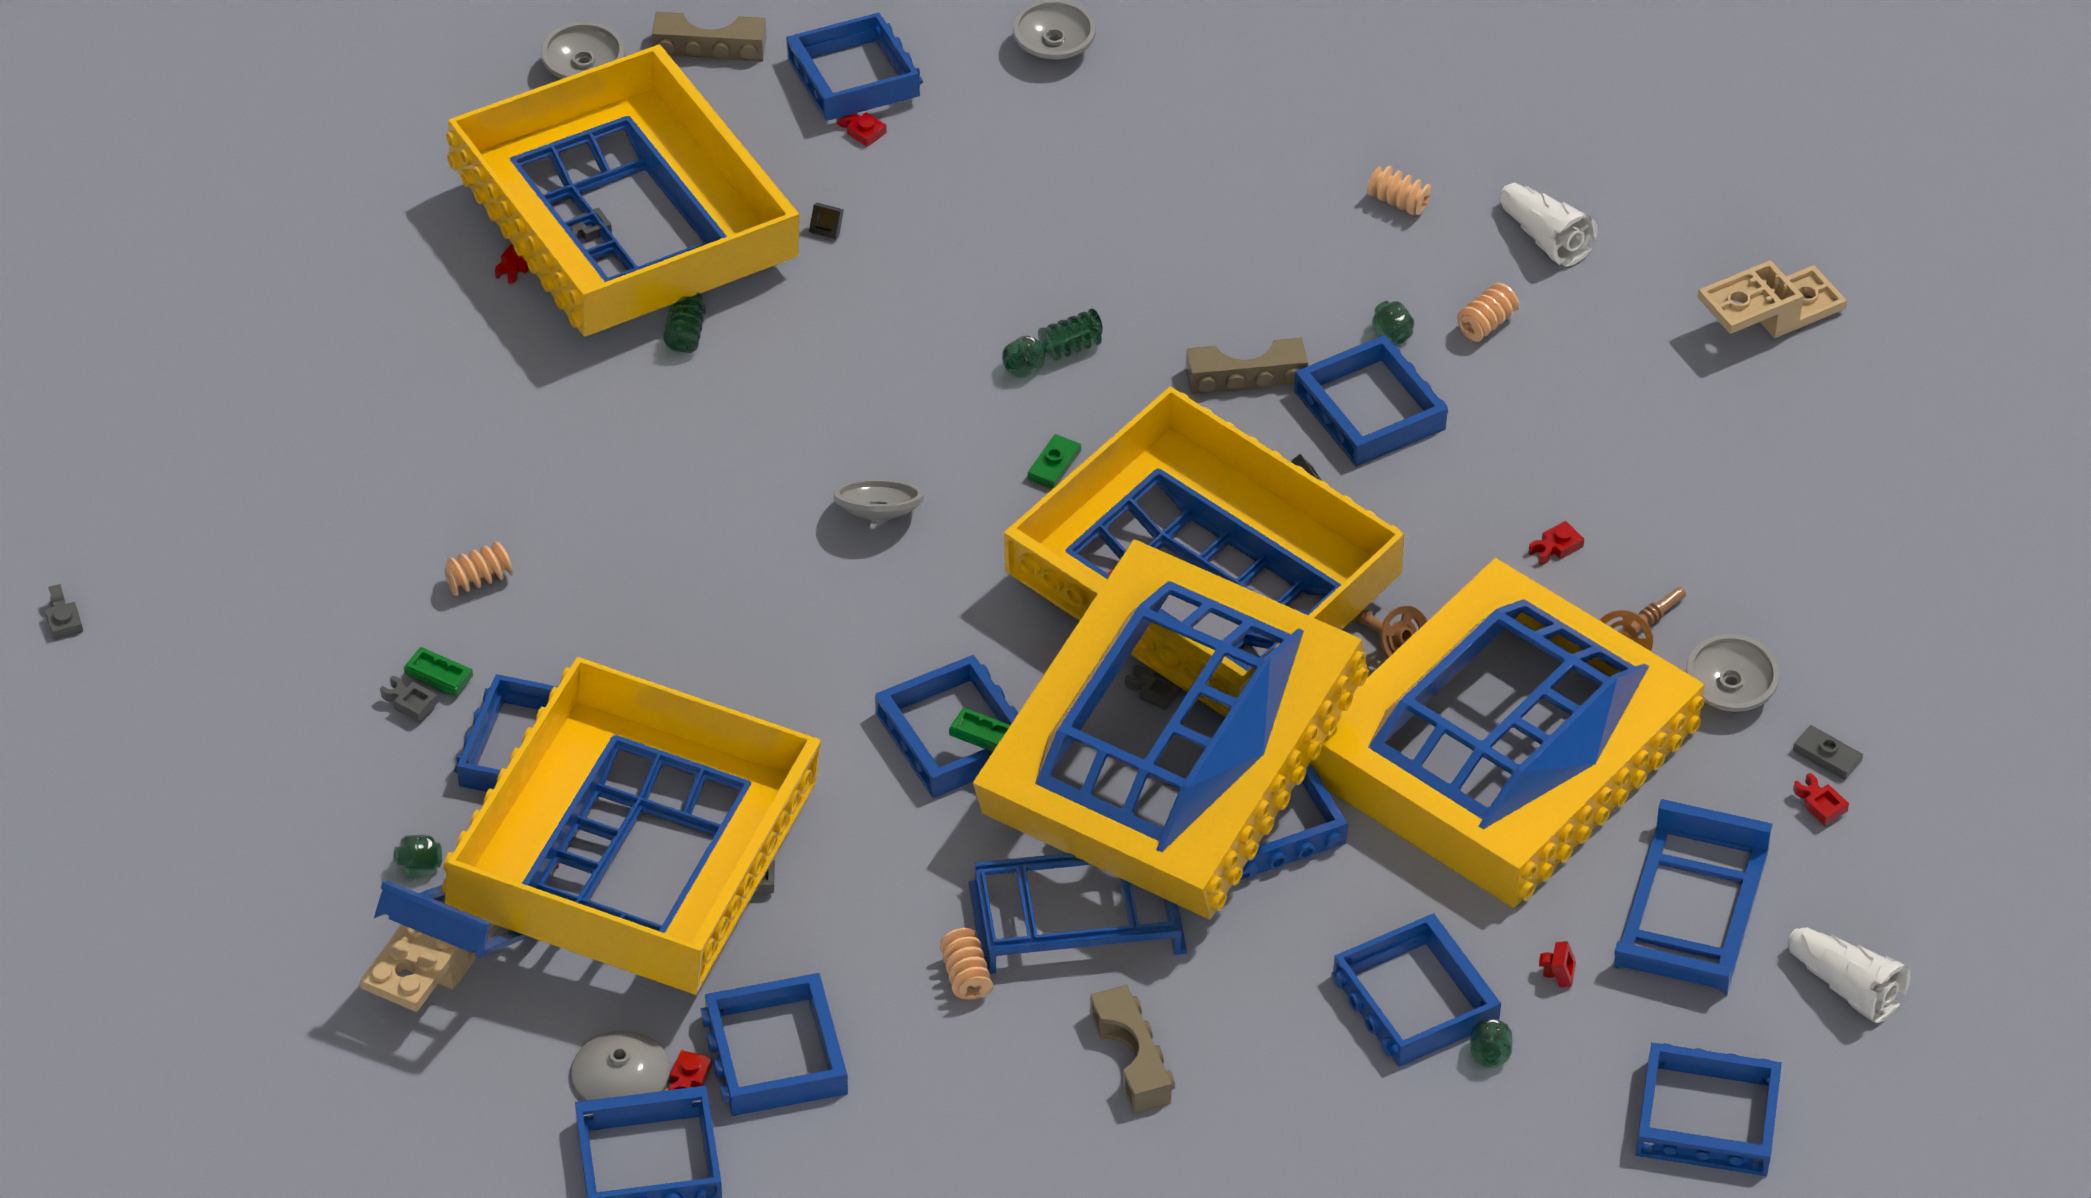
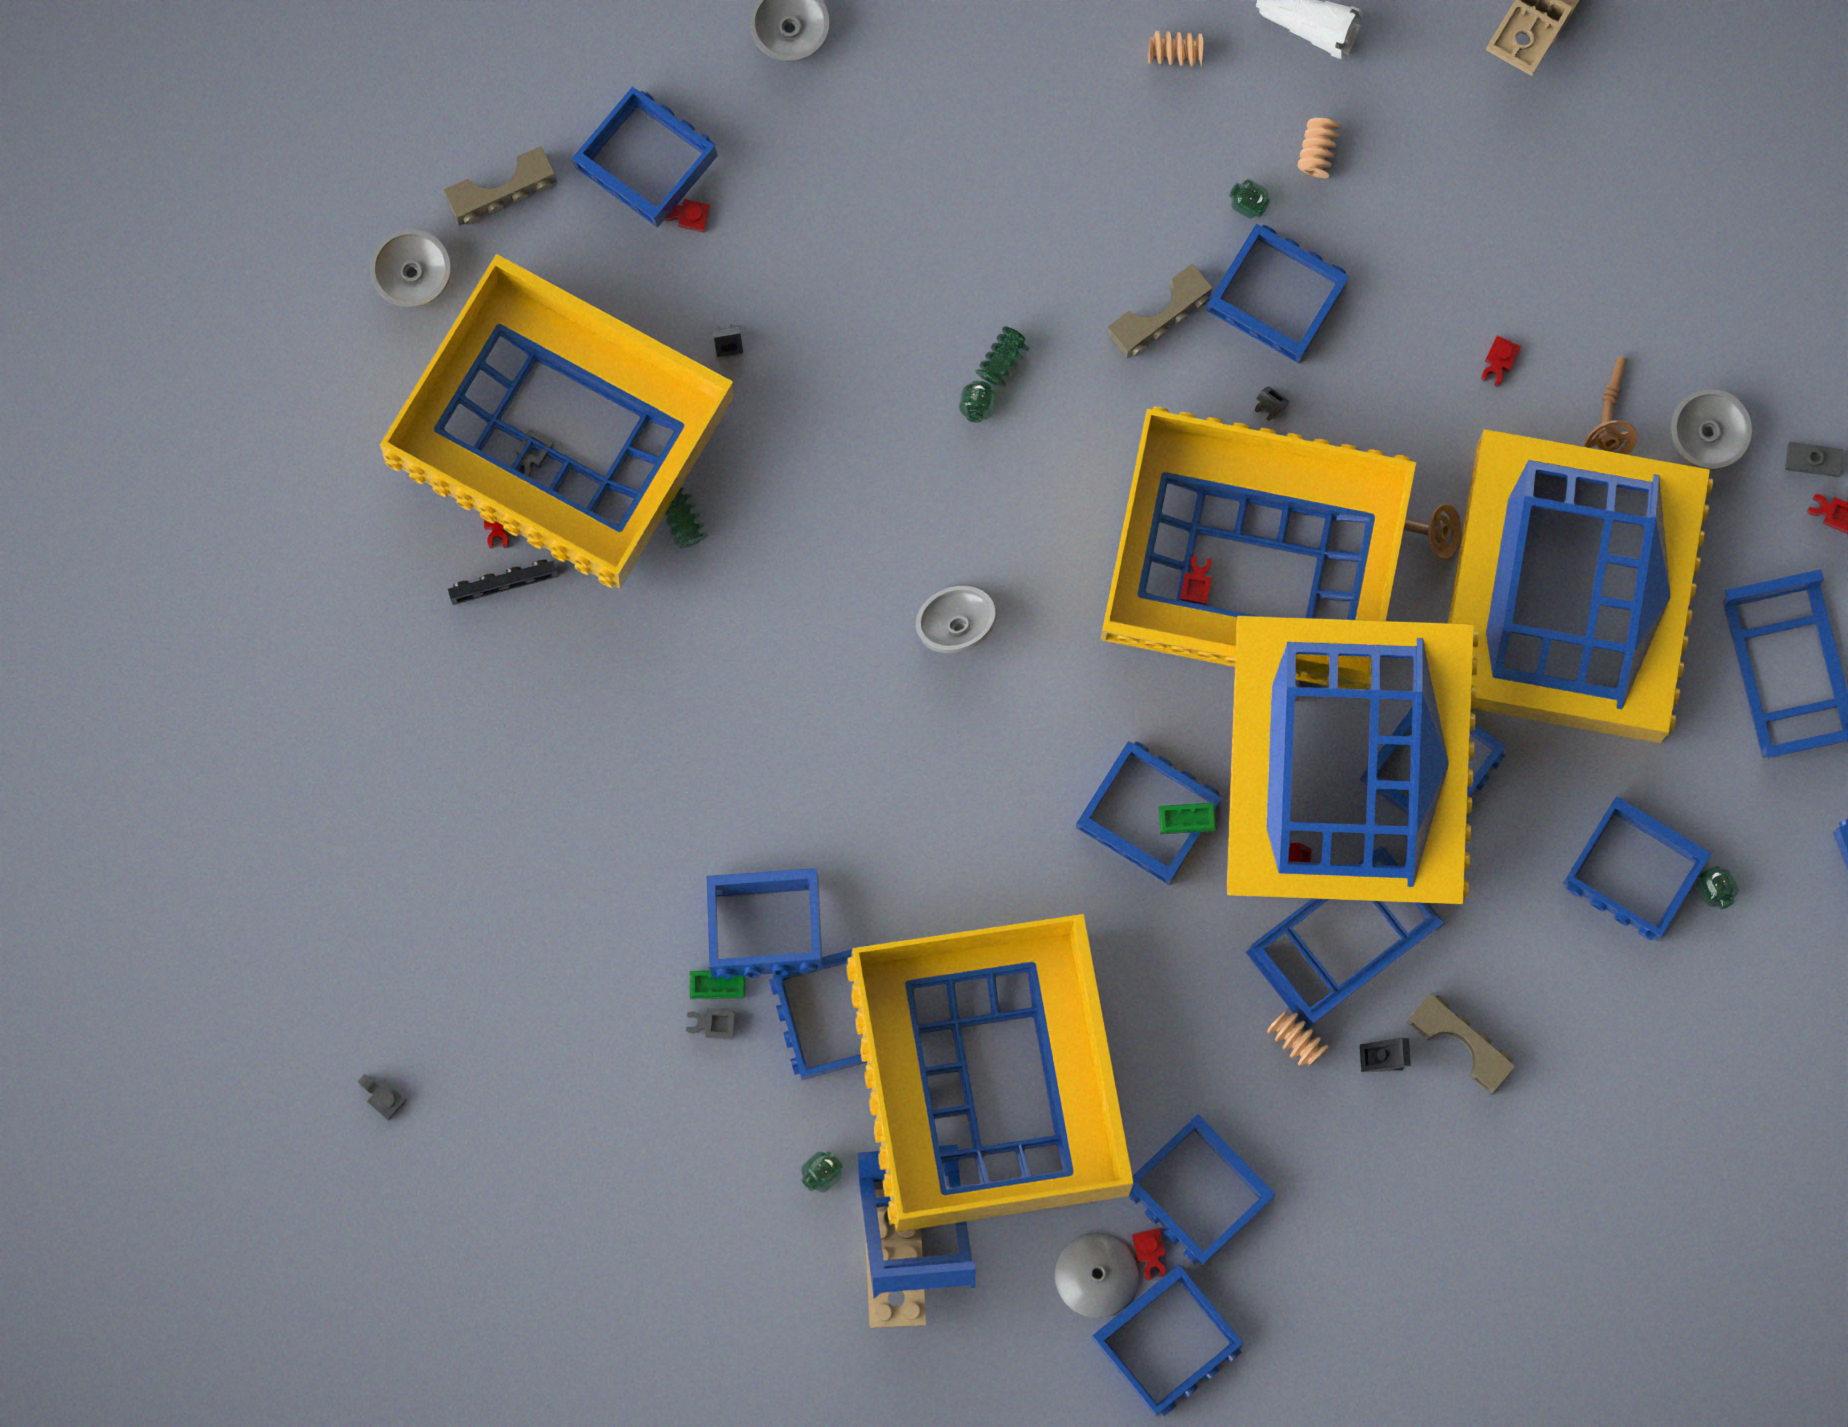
camera: 30 degrees left, 30 degrees up
(477, 566) = (683, 868): light nougat piece -> none
(485, 298) = (491, 584): none -> black plate
(574, 622) = (756, 884): none -> blue window
(1047, 1023) = (1385, 1055): none -> black slope
(1054, 461) = (1063, 494): green plate -> none
(1559, 964) = (1728, 784): red tile -> none

